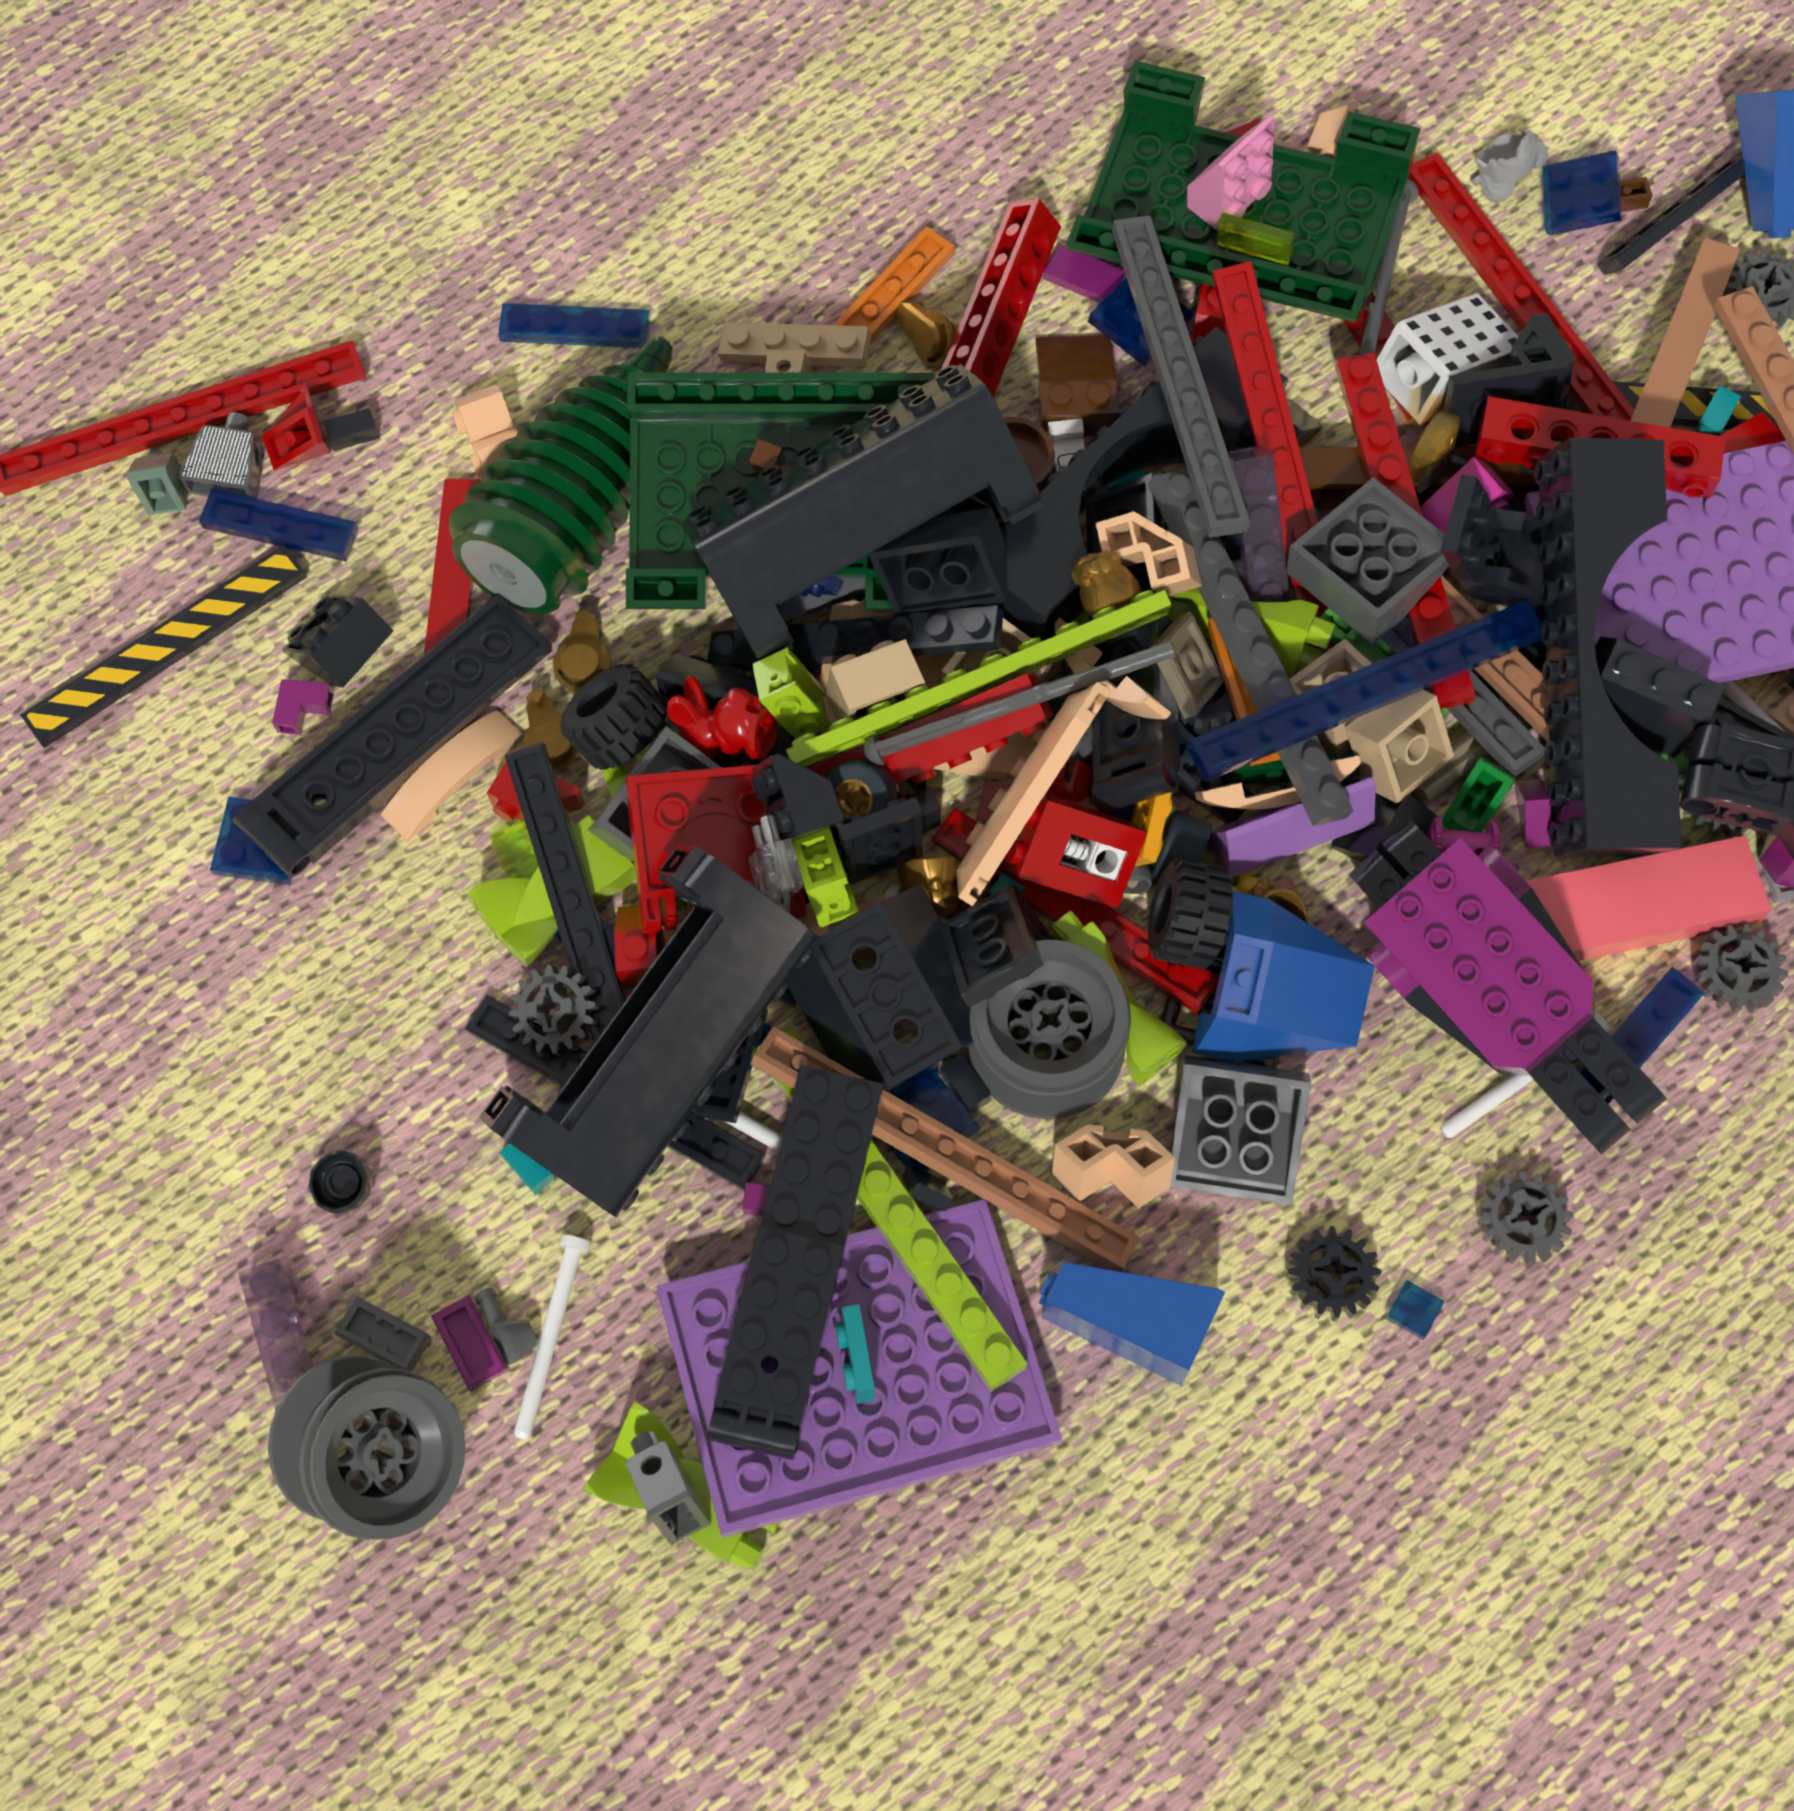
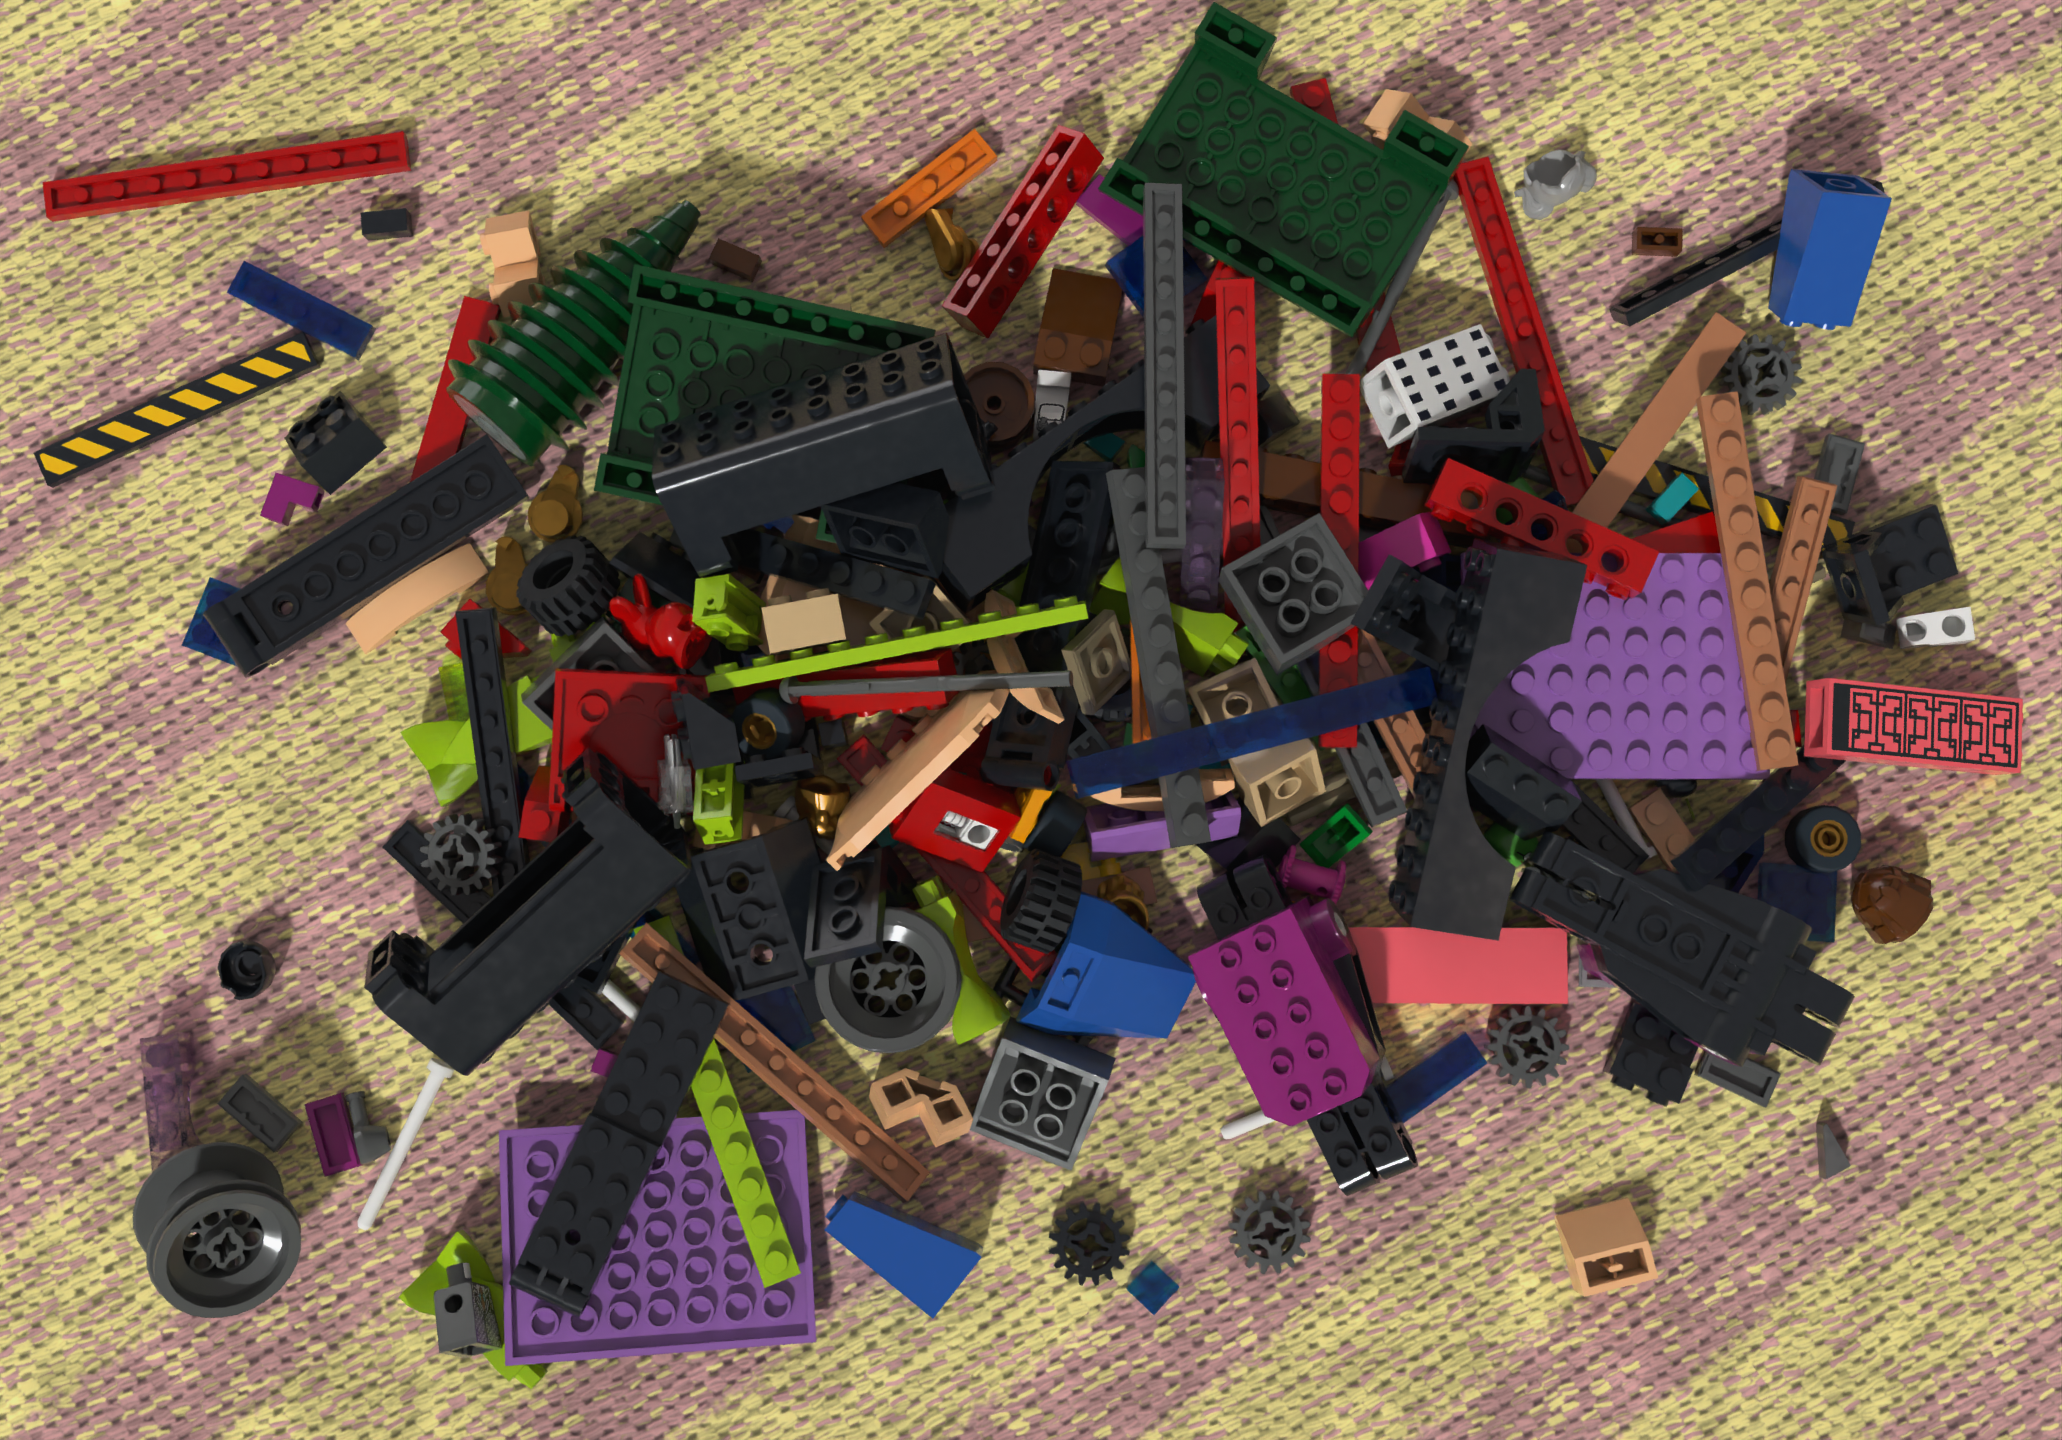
camera: 10 degrees right, 15 degrees up
(157, 483) = (193, 243): sand green slope -> none
(223, 459) = (261, 233): dark grey torso -> none
(296, 434) = (334, 217): red slope -> none
(574, 325) = (618, 158): clear blue plate -> none
(765, 456) = (751, 377): reddish brown piece -> none
(794, 346) = (818, 235): tan plate -> none
(858, 1372) = (654, 1220): teal plate -> none
(927, 1188) = (754, 1091): black tile -> none
(1104, 581) = (1035, 576): pearl gold hair -> none
(1167, 557) = (1099, 558): light nougat brick -> none
(1235, 176) = (1275, 157): bright pink slope -> none
(1255, 238) = (1280, 224): clear neon green tile -> none
(1436, 440) = (1391, 485): clear yellow hat -> none
(1452, 460) = (1390, 503): black bar -> none
(1535, 813) = (1385, 857): magenta piece -> none
(1582, 193) = (1615, 232): clear blue plate -> none

